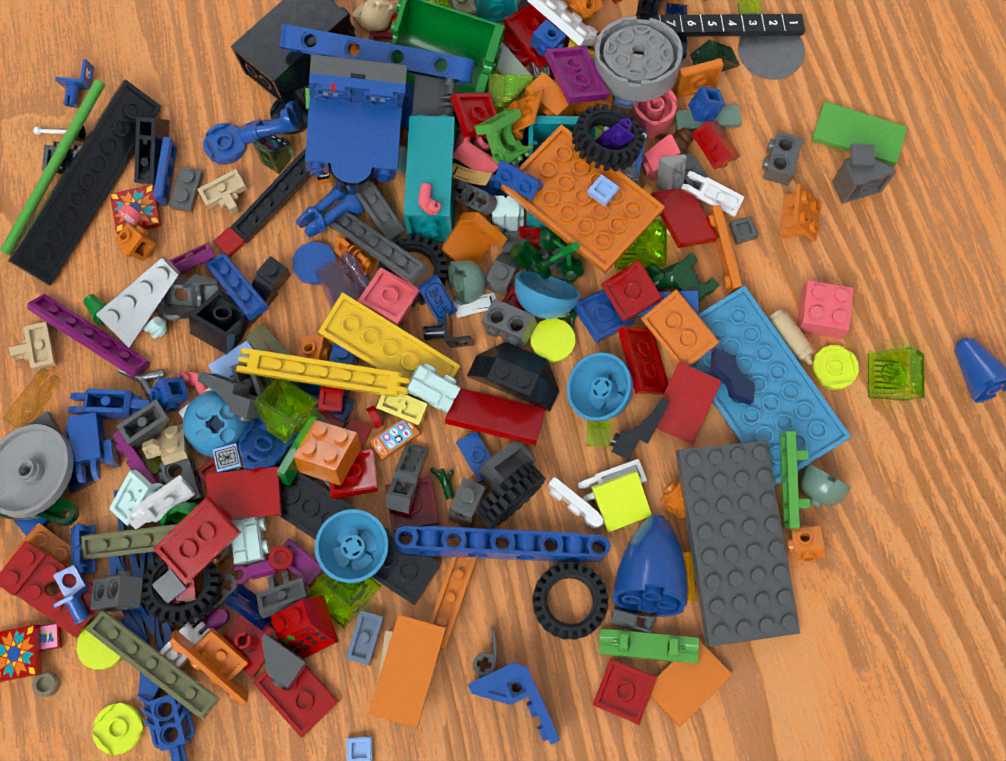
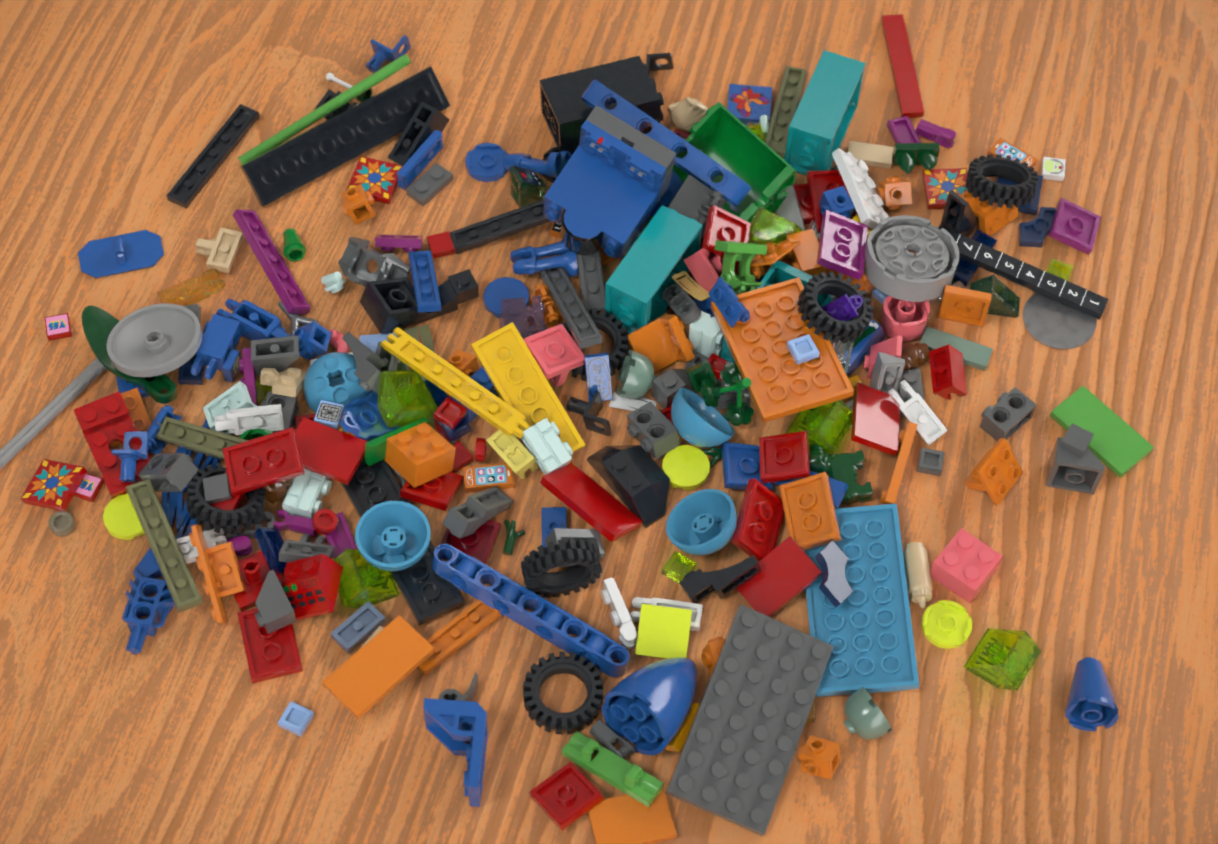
camera: 25 degrees right, 15 degrees down
(118, 728) = (100, 591): neon yellow tile -> none
(130, 214) = (367, 179): coral tile -> none
(138, 301) = (326, 252): wing -> none
(223, 191) = (461, 200): tan hinge -> none
(427, 203) = (631, 280): coral arm -> none
(466, 502) = (513, 554): dark grey torso -> none
(706, 104) = (956, 330): blue brick -> none
(789, 479) = (846, 668): bright green hinge -> none

